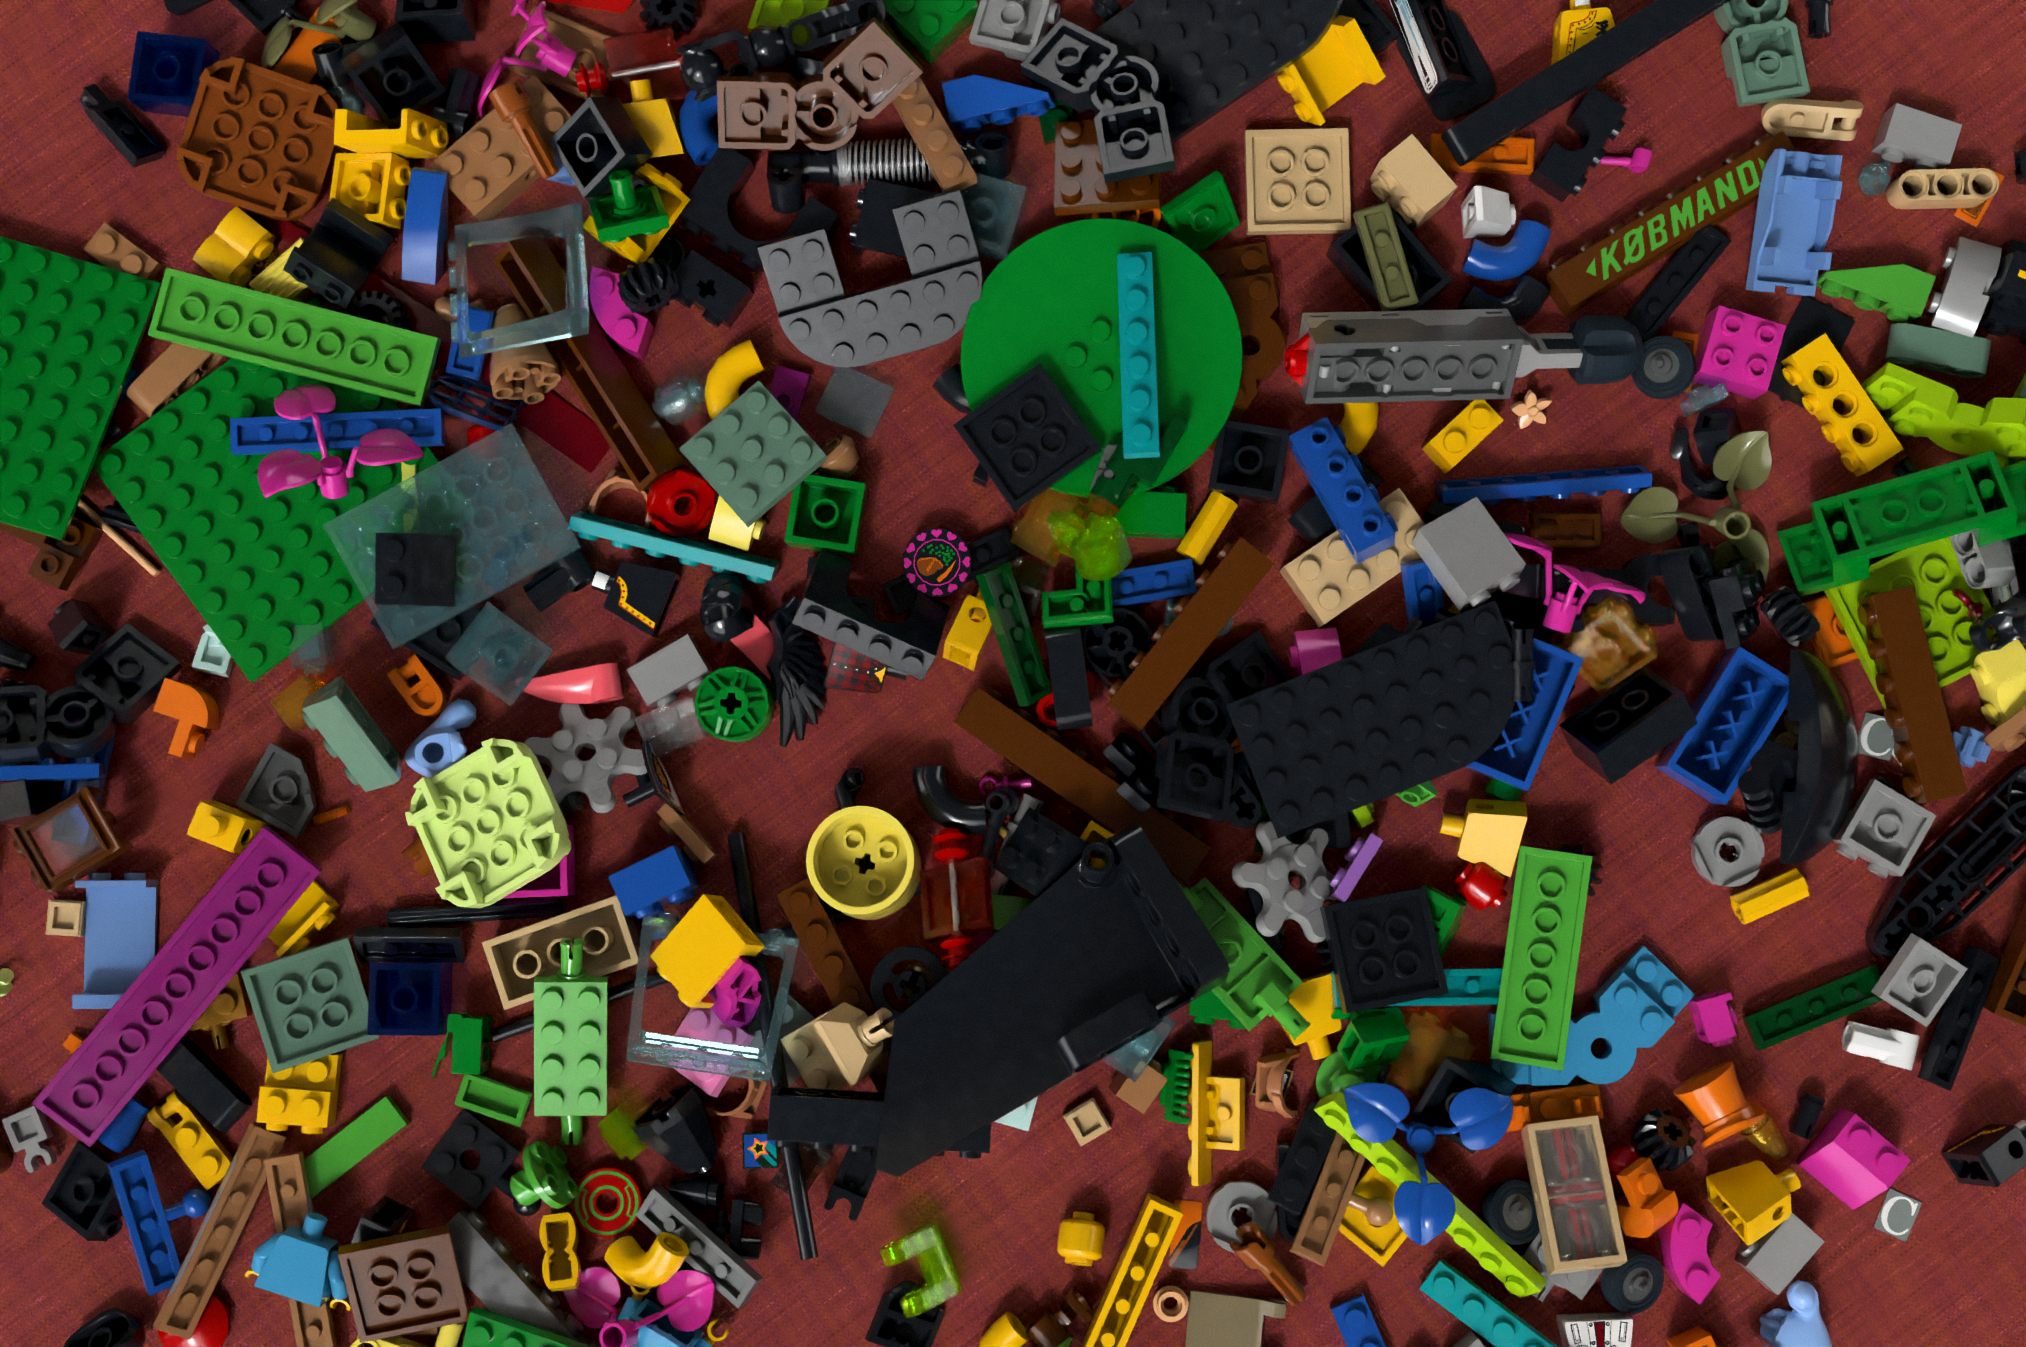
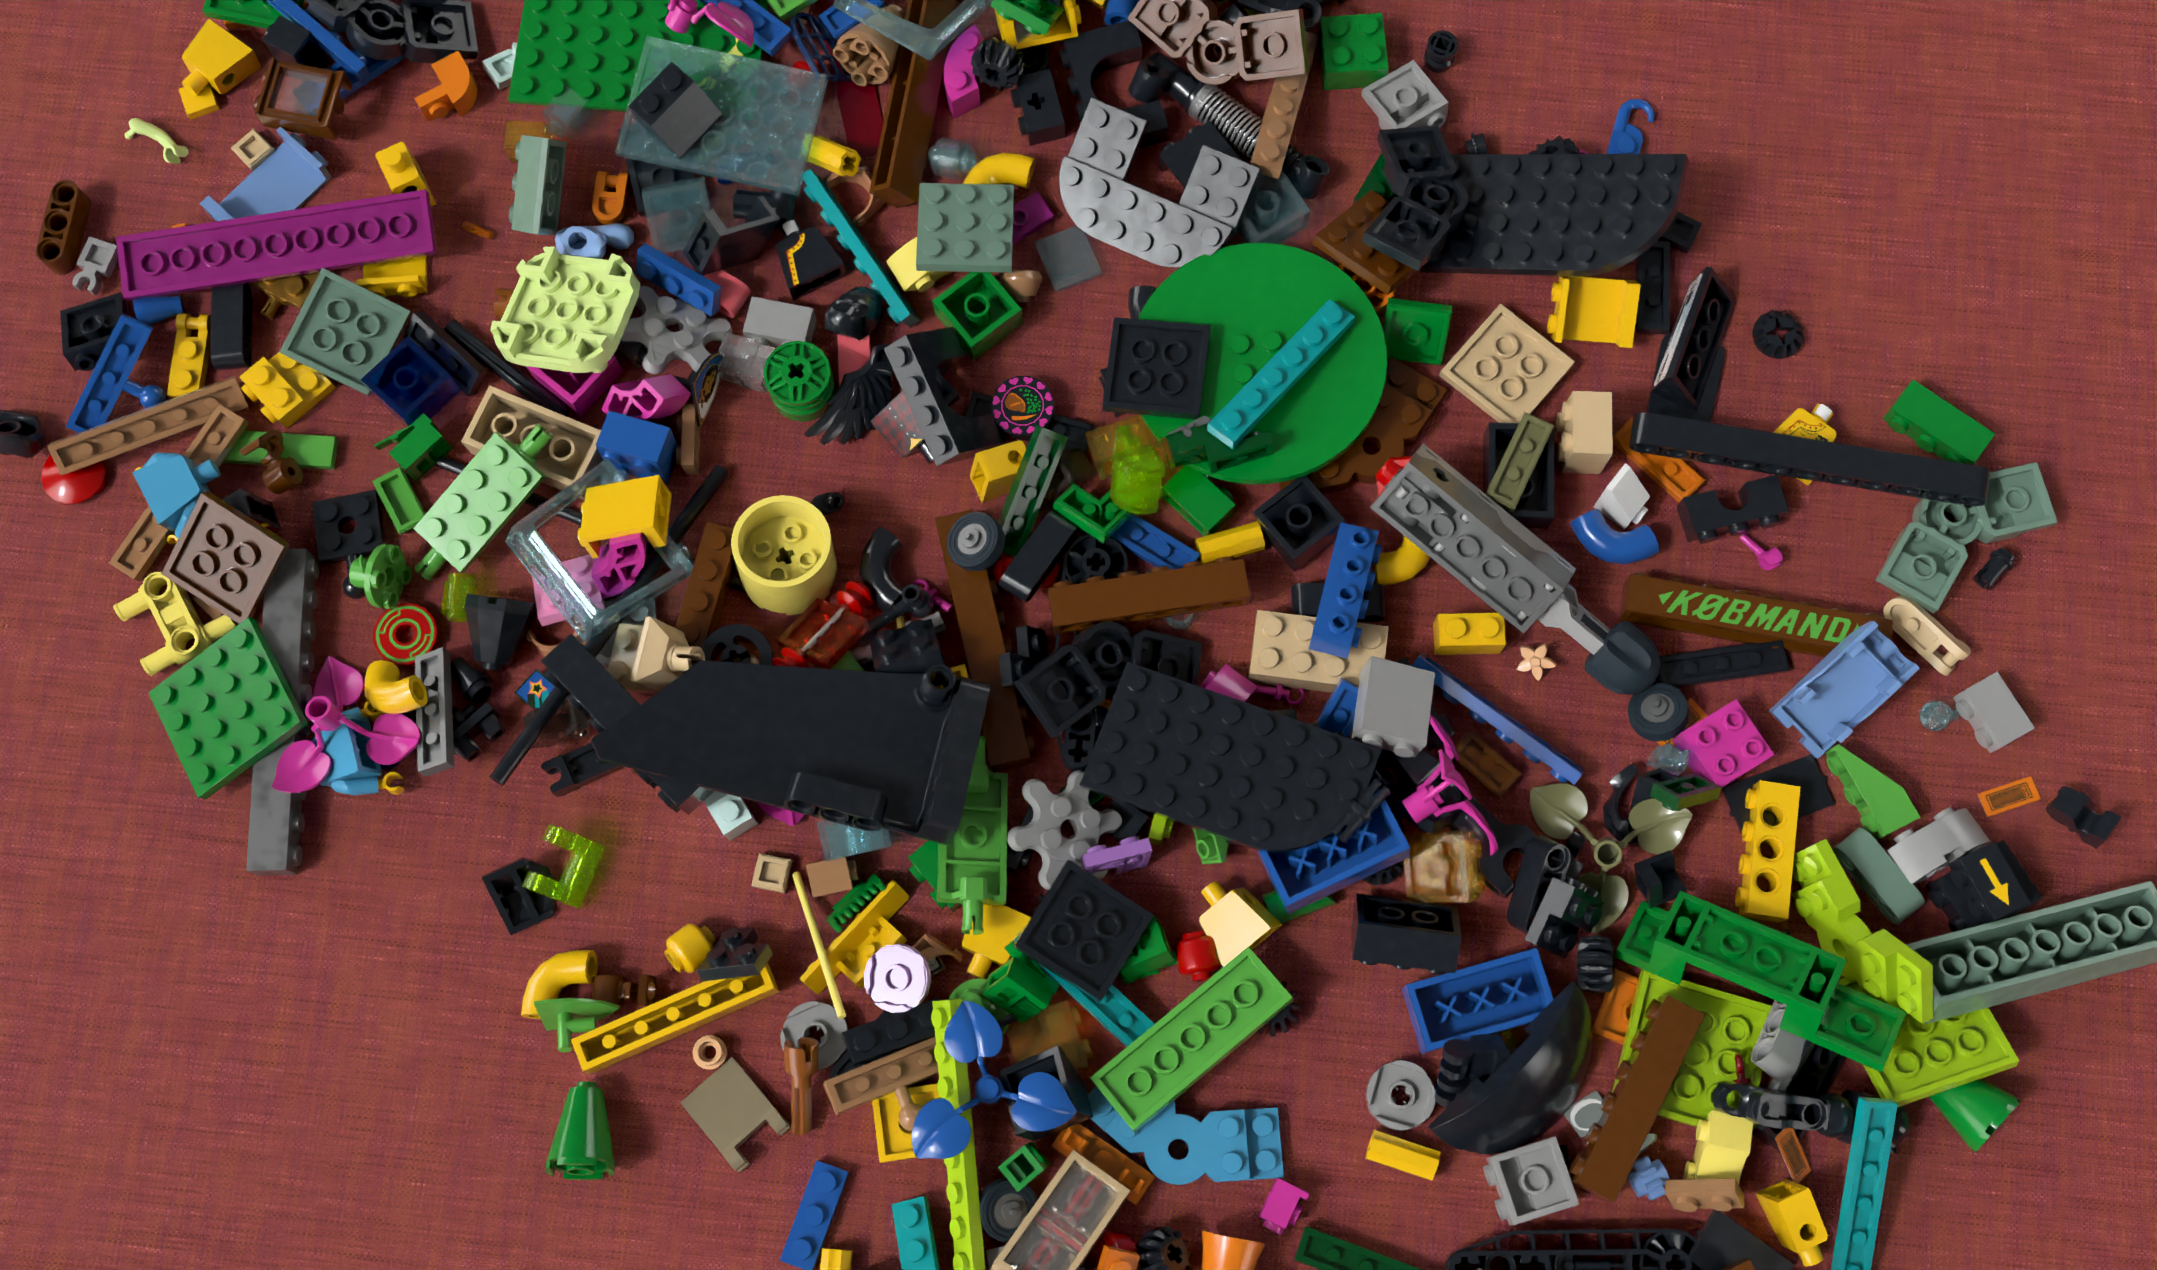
camera: 45 degrees right, 10 degrees down
(280, 791) = (460, 186): dark grey plate -> none
(372, 1167) = (281, 472): none -> reddish brown leg
(551, 710) = (678, 279): none -> blue plate
(559, 657) = (717, 247): none -> black panel
(560, 1263) = (350, 628): yellow brick -> none
(581, 487) = (834, 156): none -> yellow axle
(624, 839) = (647, 398): none -> dark pink brick
(672, 487) = (886, 205): red tile -> none
(984, 101) = (1336, 138): blue slope -> none
(1010, 713) = (975, 541): none -> black wheel
(1128, 1221) = (735, 956): none -> black plate
(1182, 1146) = (819, 945): none -> light yellow axle
(1186, 1238) = (765, 1016): sticker -> none
(1271, 1117) = (897, 978): none -> tile
(1353, 615) = (1278, 692): none -> dark pink hand
(1501, 1170) = (1024, 1165): none -> green leg
(1522, 301) = (1588, 581): black cylinder -> none
(1746, 418) = (1685, 792): none -> dark green plate
(1778, 504) = (1658, 879): none -> black panel
(1956, 181) = (1966, 763): tan beam -> none

